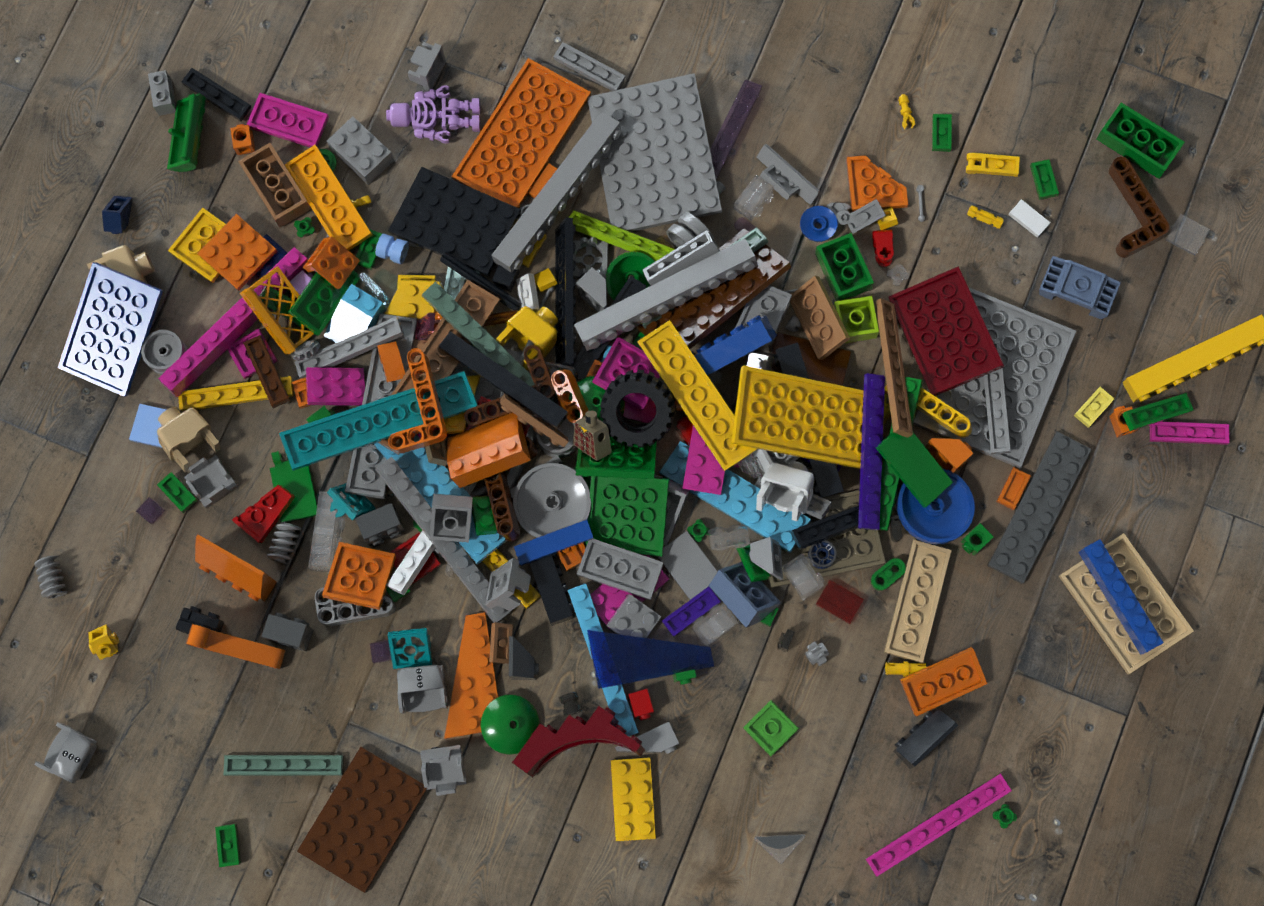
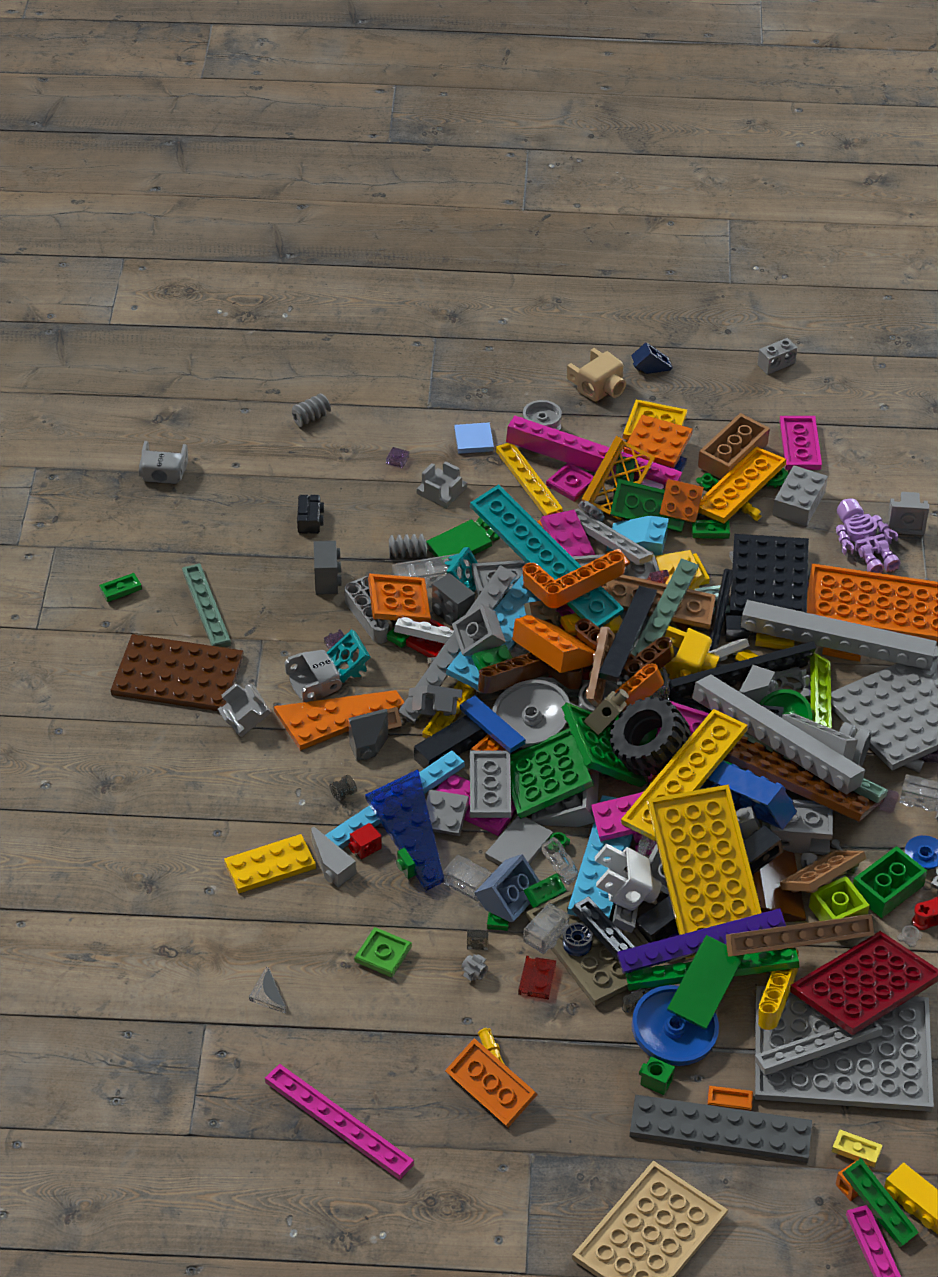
camera: 65 degrees right, 30 degrees down
(103, 642) = (267, 456): yellow brick -> none
(110, 329) = (544, 377): plate -> none
(177, 492) = (415, 471): green plate -> none
(183, 433) = (473, 450): tan piece -> none
(186, 133) = (750, 379): green container -> none
(216, 94) = (797, 390): black plate -> none
(233, 569) = (368, 517): orange slope -> none
(235, 646) = (297, 528): orange beam -> none
(245, 146) = (766, 415): orange brick -> none
(263, 515) = (429, 526): red wing -> none
(266, 371) = (558, 490): reddish brown tile -> none
(374, 288) = (673, 538): clear light blue tile -> none
(392, 248) = (718, 541): light blue wheel -> none
(497, 719) = (309, 758): green dish -> none
(548, 742) = (314, 792): dark red arch -> none
(690, 611) = (459, 846): dark purple plate -> none
(767, 555) = (553, 889): light grey slope -> none
(887, 574) = (585, 1008): green plate -> none
(917, 601) = (567, 1041): tan plate -> none
(924, 738) = (422, 1082): black slope -> none
(949, 453) = (735, 1022): orange slope -> none
(1010, 816) = (370, 1174): green plate -> none
(1120, 597) = (651, 1215): blue brick -> none

